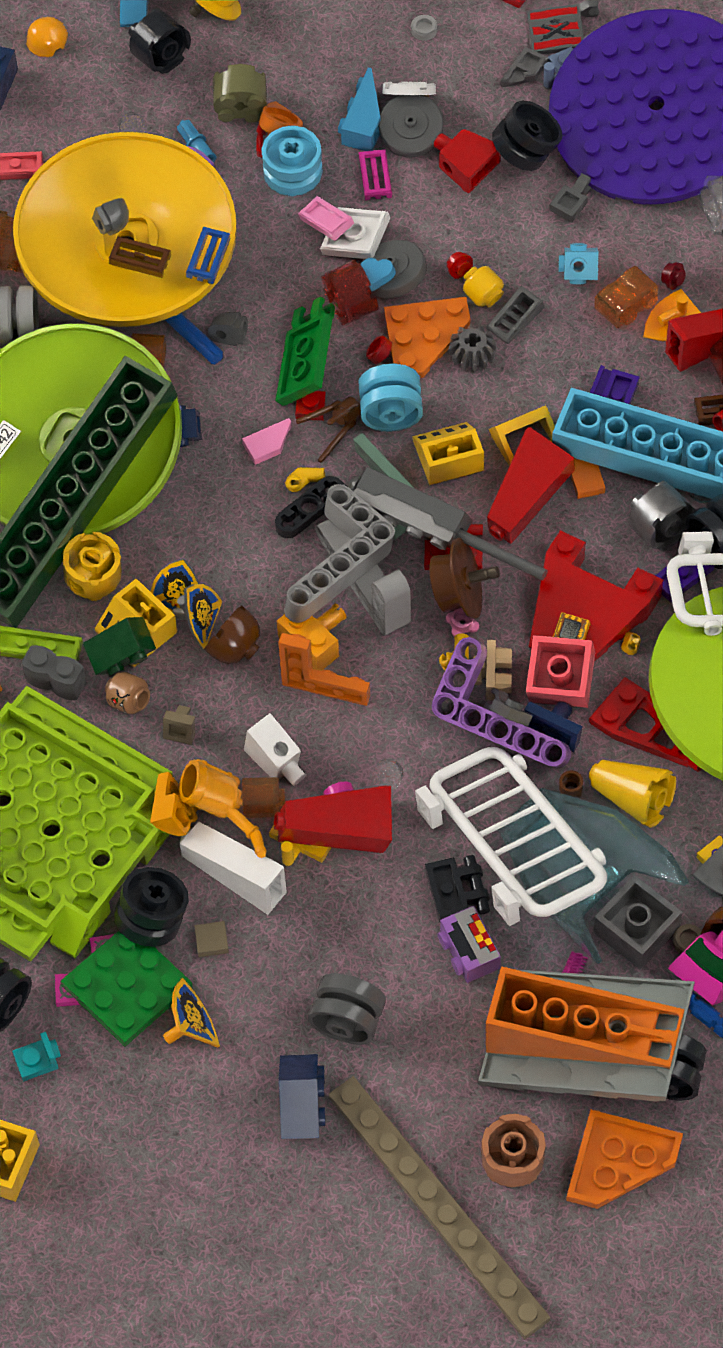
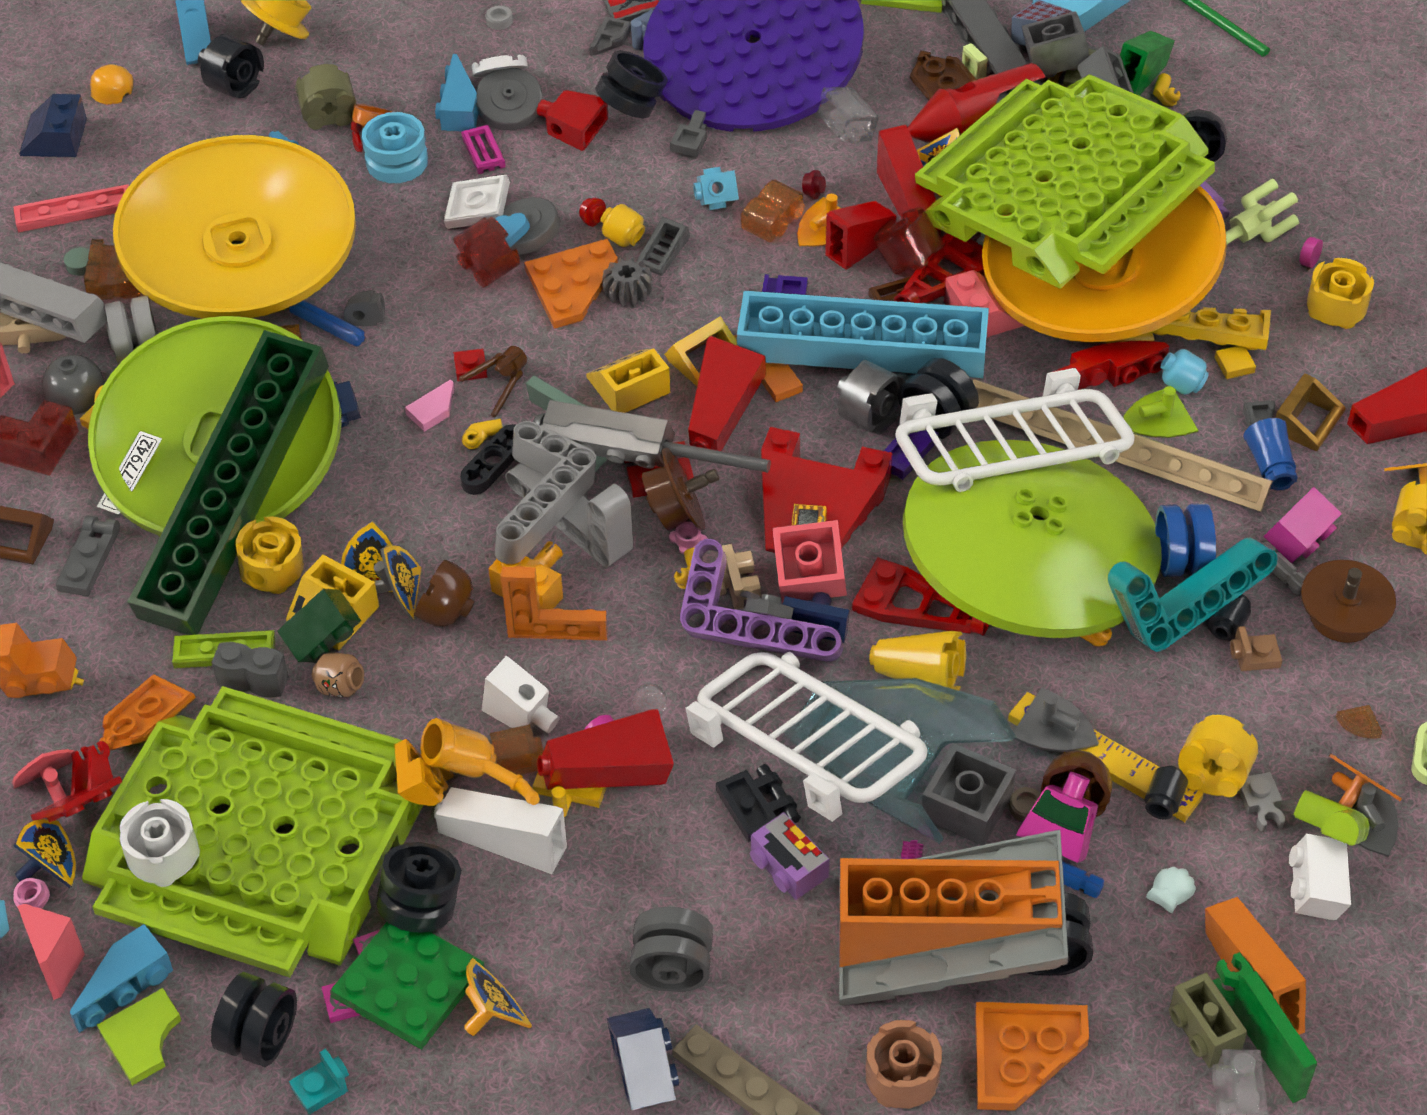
camera: 15 degrees left, 10 degrees down
(111, 216) = (218, 212): dark grey piece -> none
(138, 261) = (257, 246): reddish brown tile -> none
(179, 725) = (404, 697): dark tan tile -> none
(202, 274) = (328, 250): blue tile -> none
(211, 939) = (494, 912): dark tan tile -> none
(305, 352) = (453, 315): green tile -> none
(326, 218) = (443, 193): bright pink tile -> none
(379, 349) = (529, 300): red tile -> none
(390, 397) = (555, 336): medium azure wheel -> none
(574, 779) = (852, 669): reddish brown hose -> none
(631, 643) = (873, 525): yellow rock -> none

